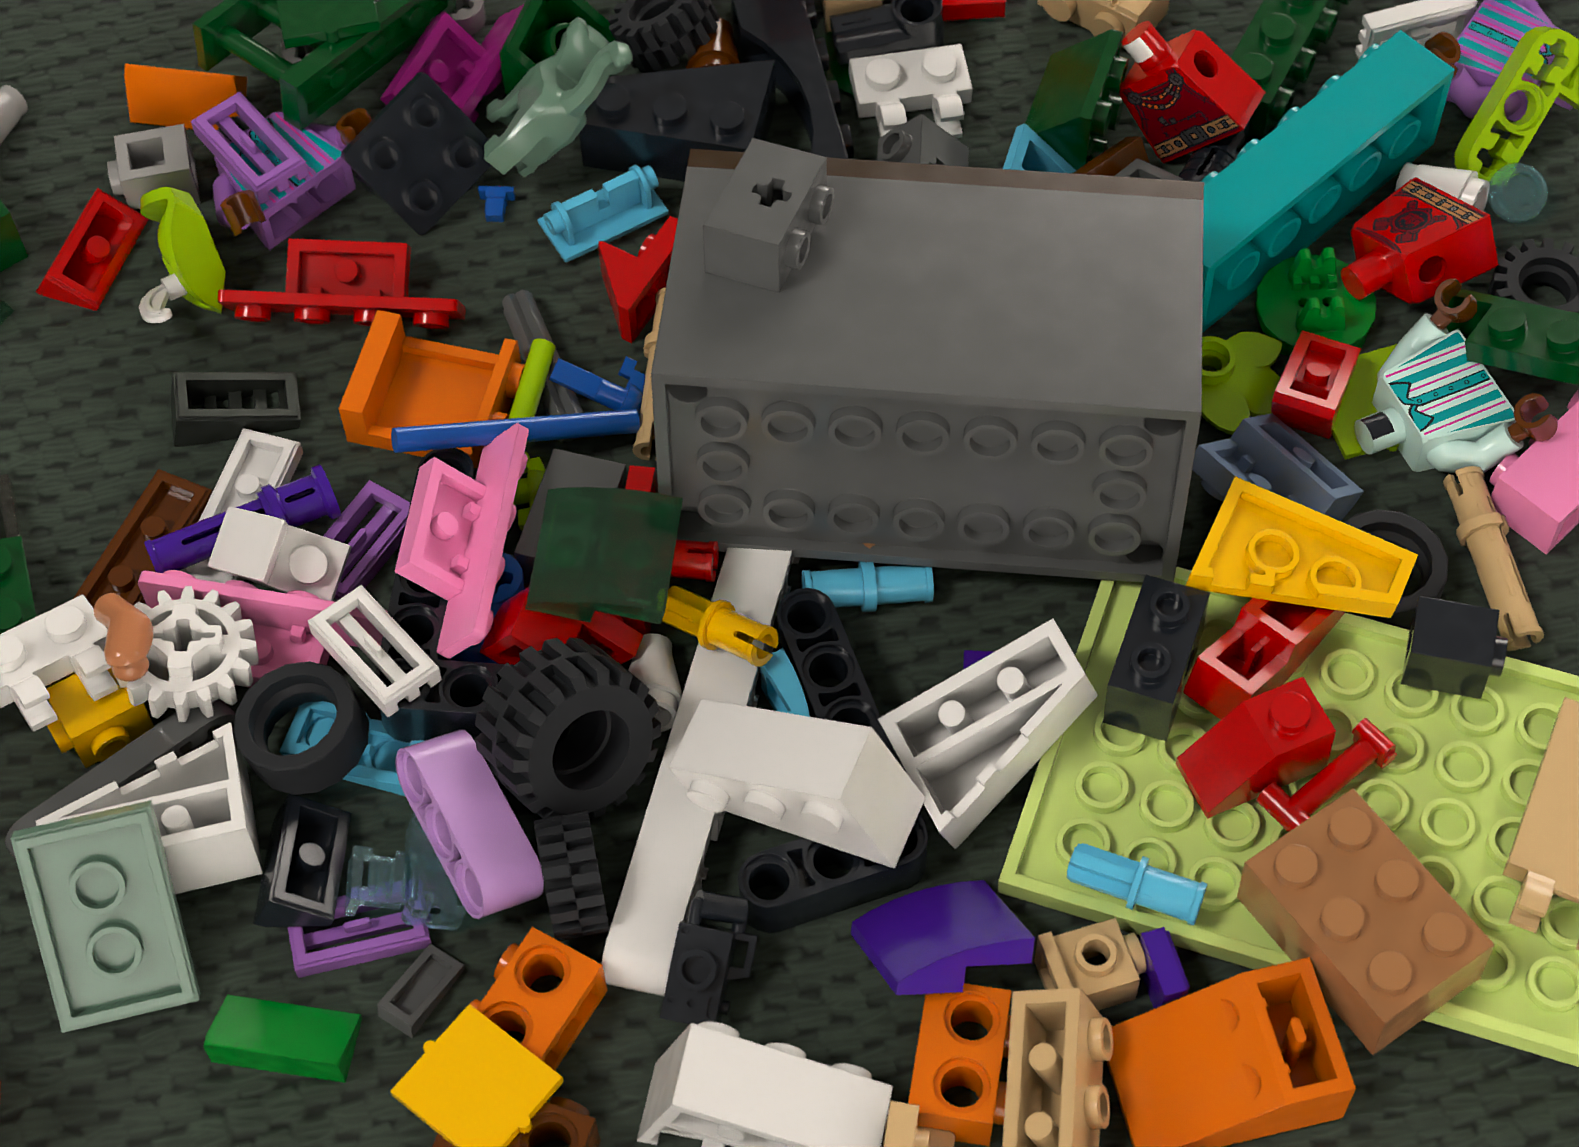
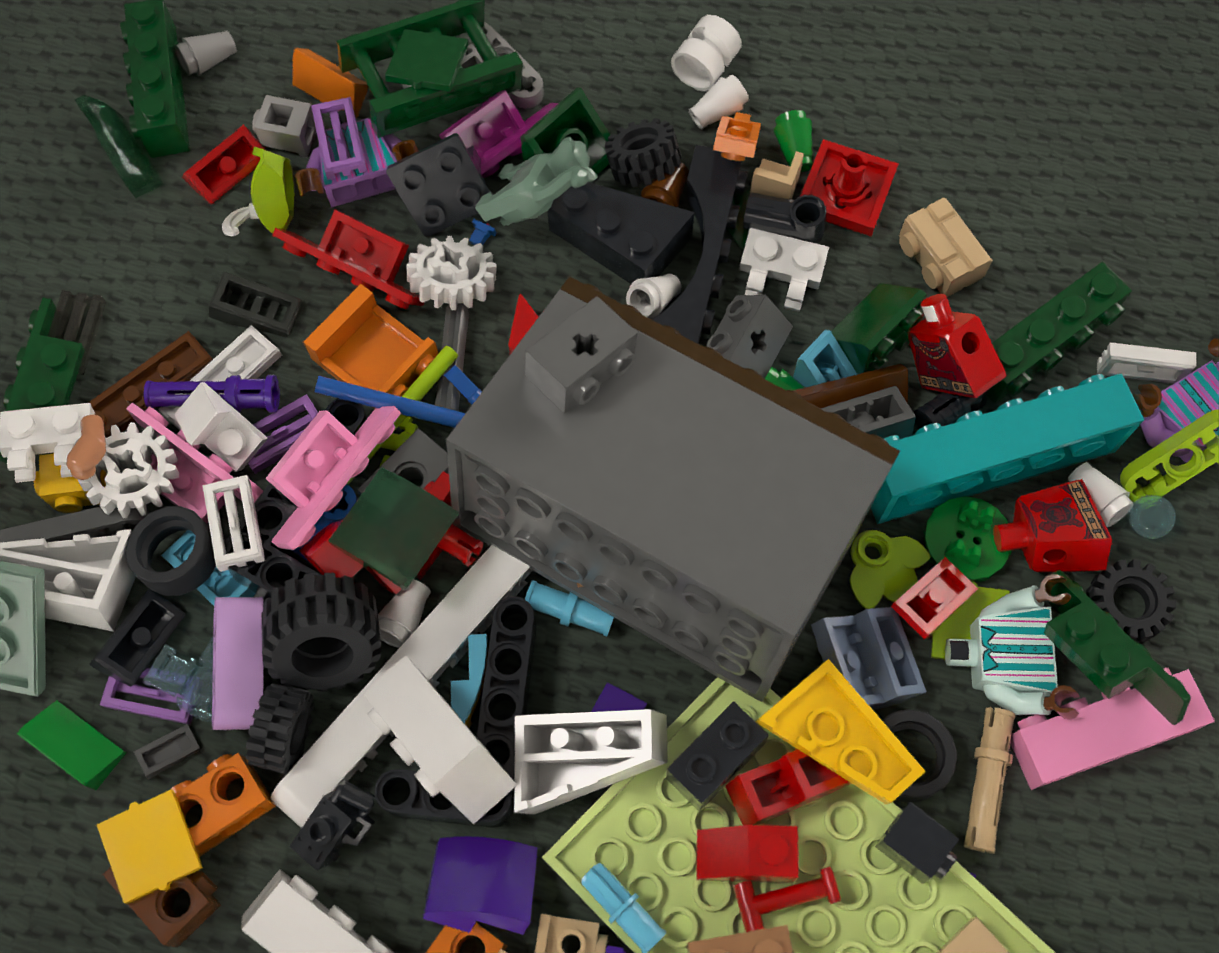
camera: 25 degrees right, 10 degrees up
(488, 256) = (451, 272): none -> white gear
(604, 215) = (538, 271): medium azure hinge -> none
(718, 625) = (451, 601): yellow axle -> none

